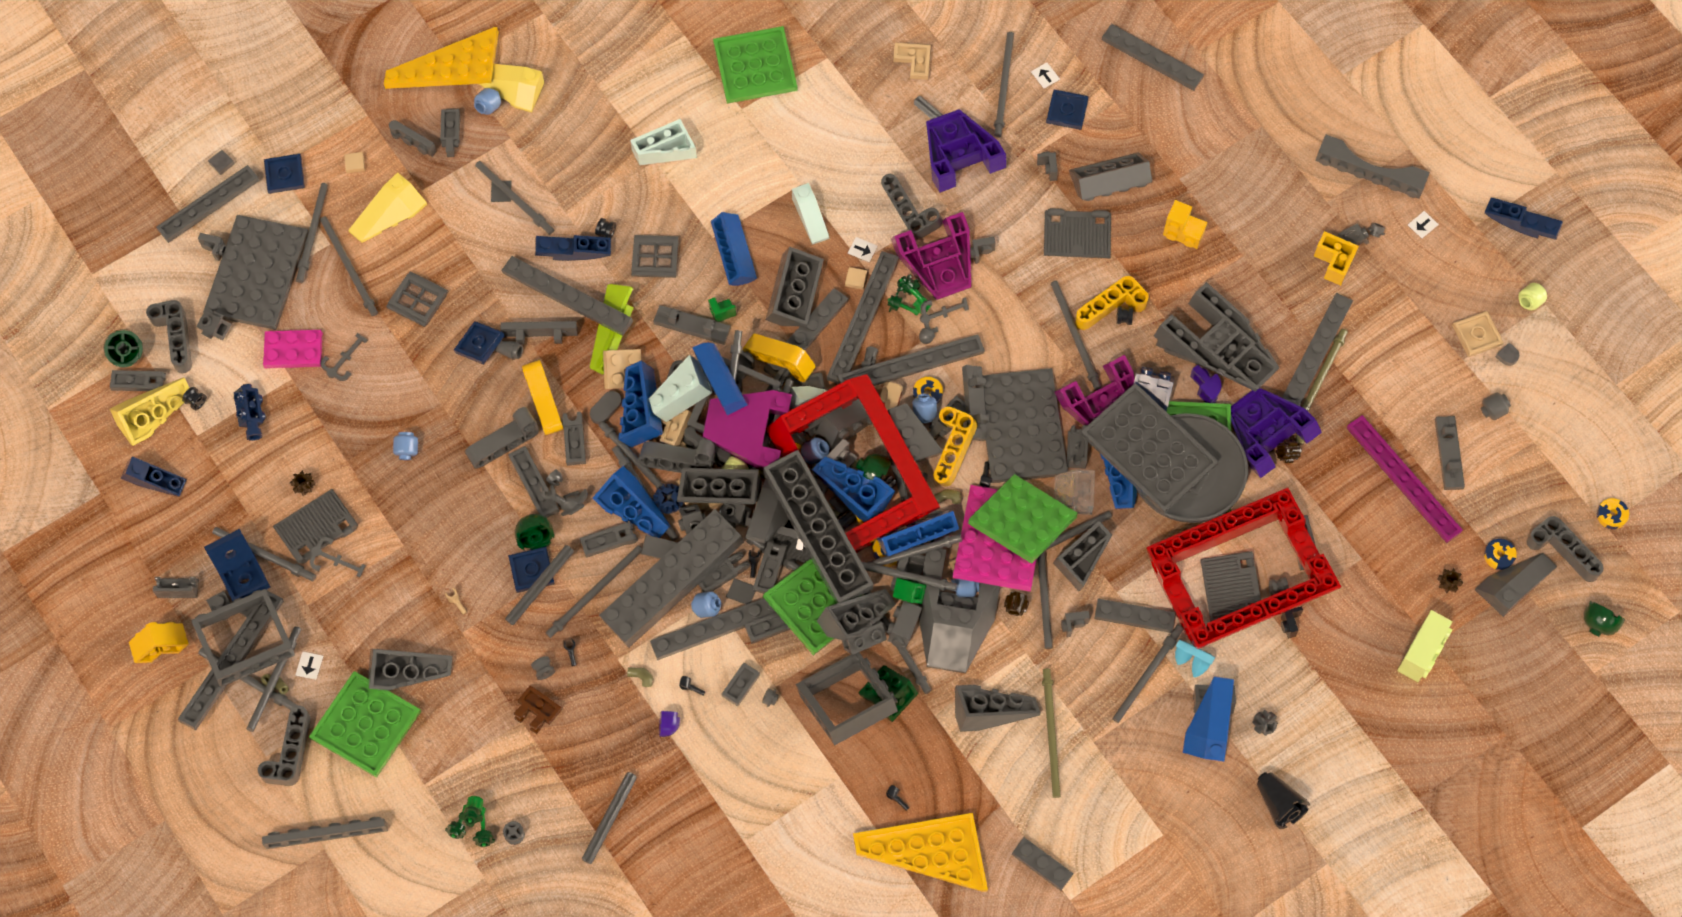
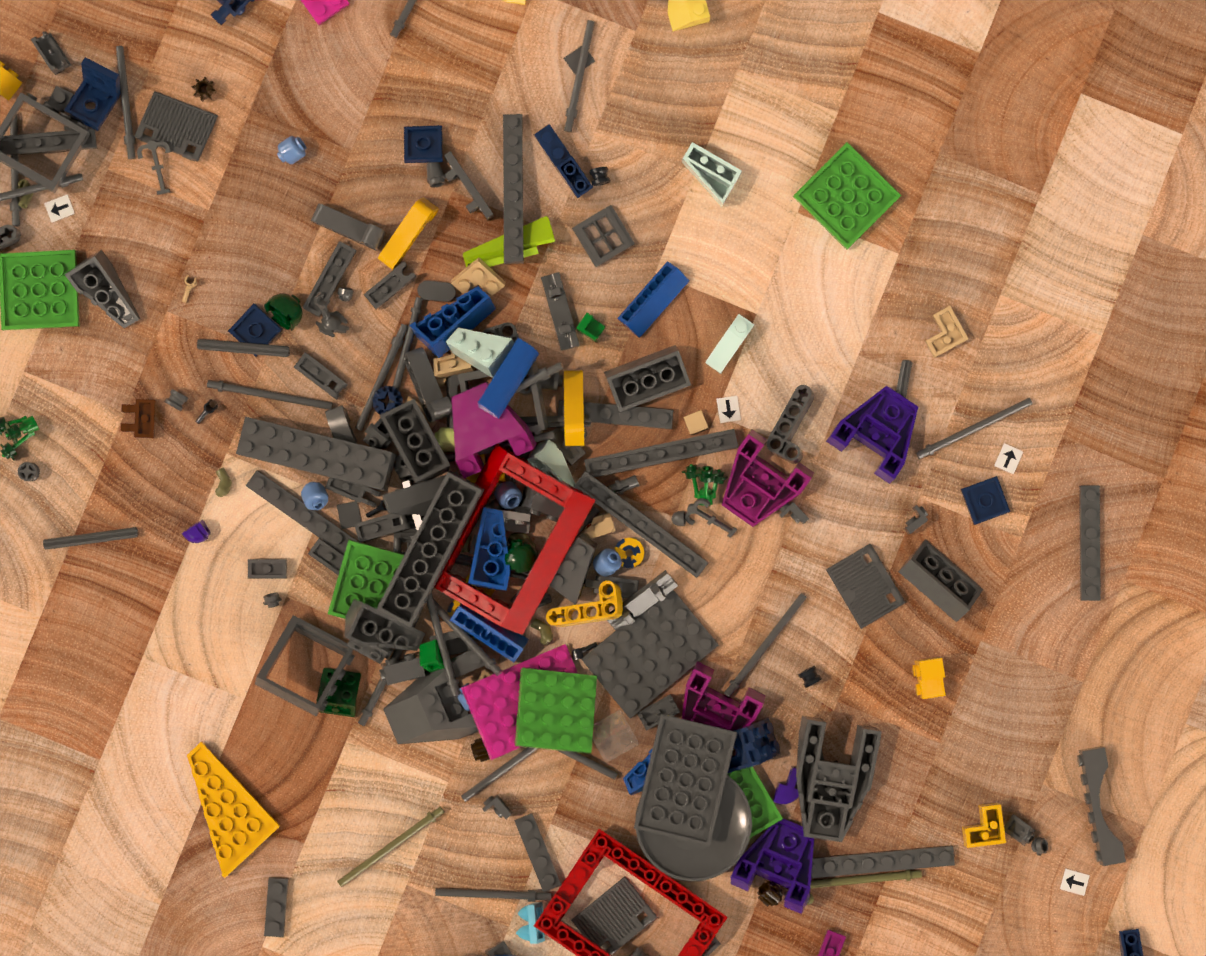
camera: 55 degrees right, 20 degrees up
(332, 372) = (319, 39): dark grey piece -> none
(417, 299) = (430, 62): dark grey piece -> none
(630, 501) = (366, 366): blue wedge -> none
(685, 685) = (239, 523): black hand -> none
(892, 794) = (255, 751): black hand -> none
(984, 709) = (375, 781): dark grey wedge -> none
(1081, 557) = (561, 778): dark grey wedge -> none
(1108, 305) = (810, 656): yellow beam -> none

